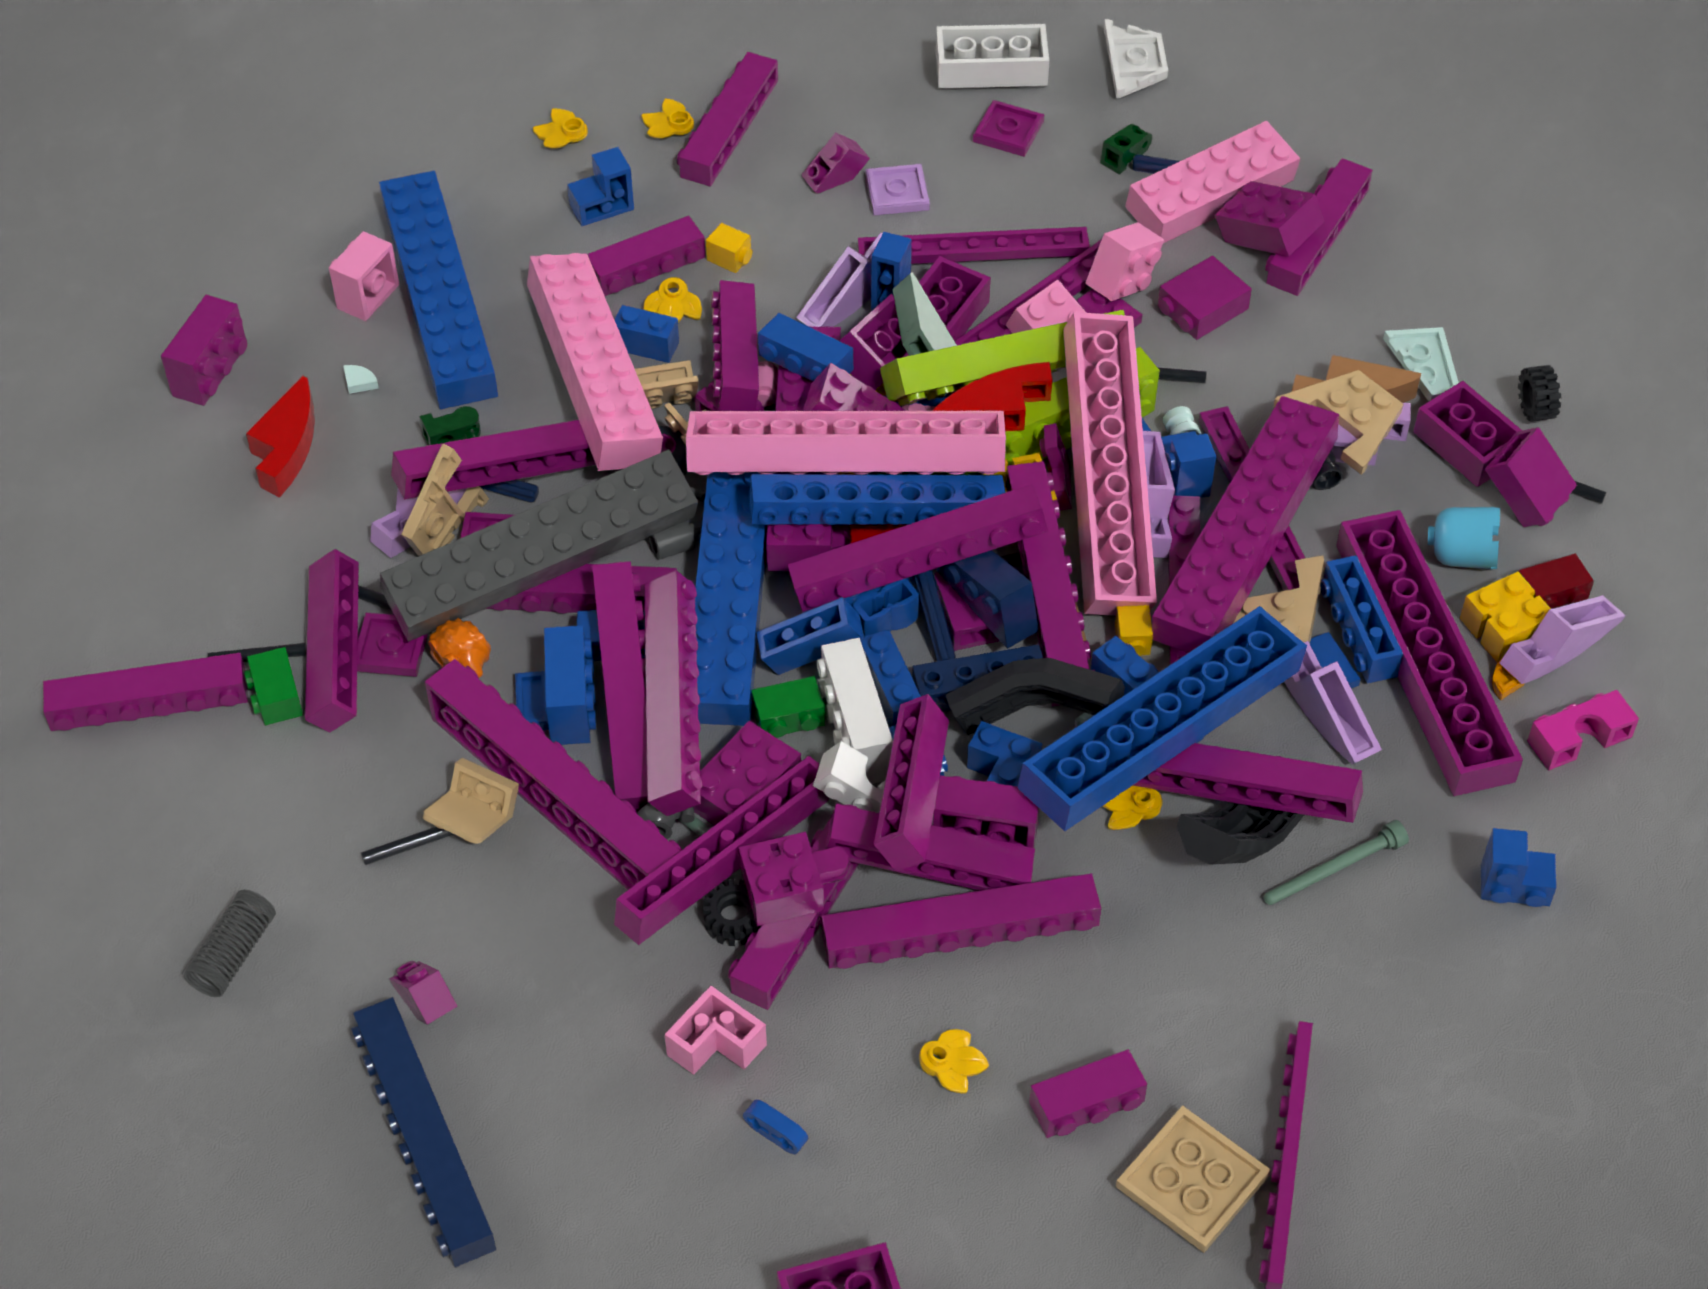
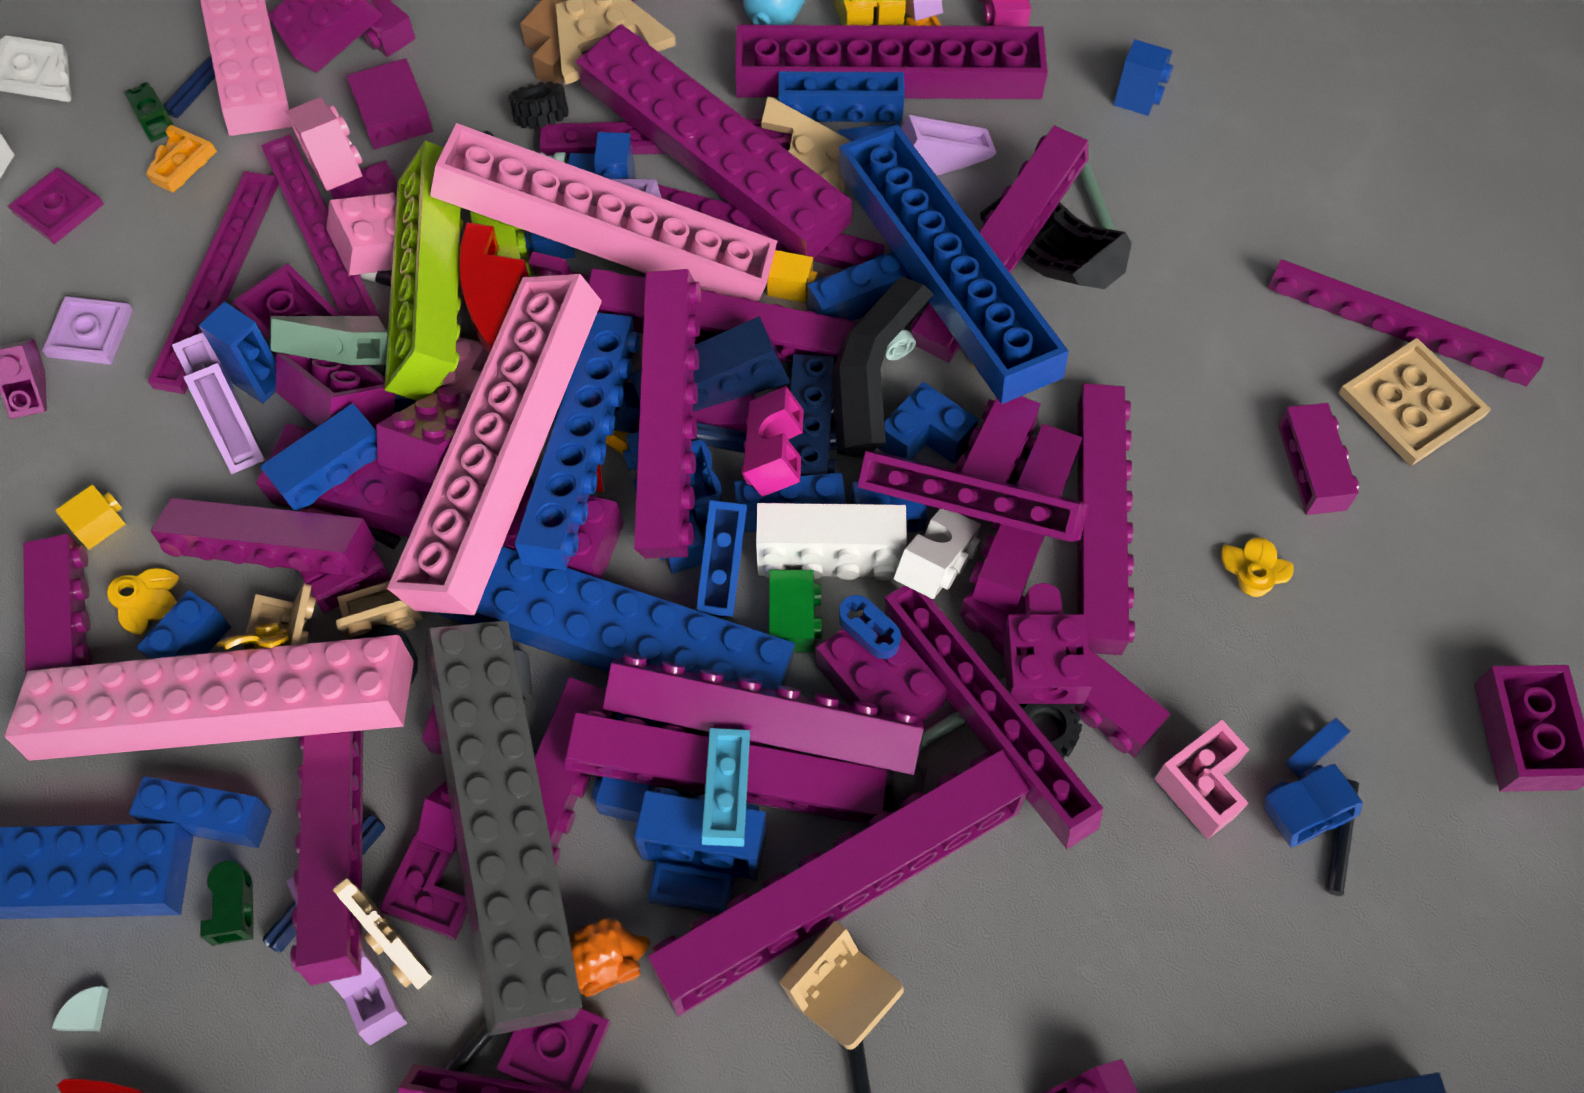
camera: 75 degrees left, 10 degrees up
(511, 387) = (202, 811): none -> blue brick
(595, 669) = (726, 787): none -> medium azure plate
(645, 367) = (266, 636): none -> yellow plate
(697, 1162) = (1340, 854): none -> black bar
(714, 1122) = (1312, 804): none -> blue brick
(767, 741) = (864, 633): none -> blue beam
(907, 635) = (769, 456): none -> dark pink arch
(1083, 183) = (179, 159): none -> light orange wing
(1246, 397) = (538, 105): none -> black tyre

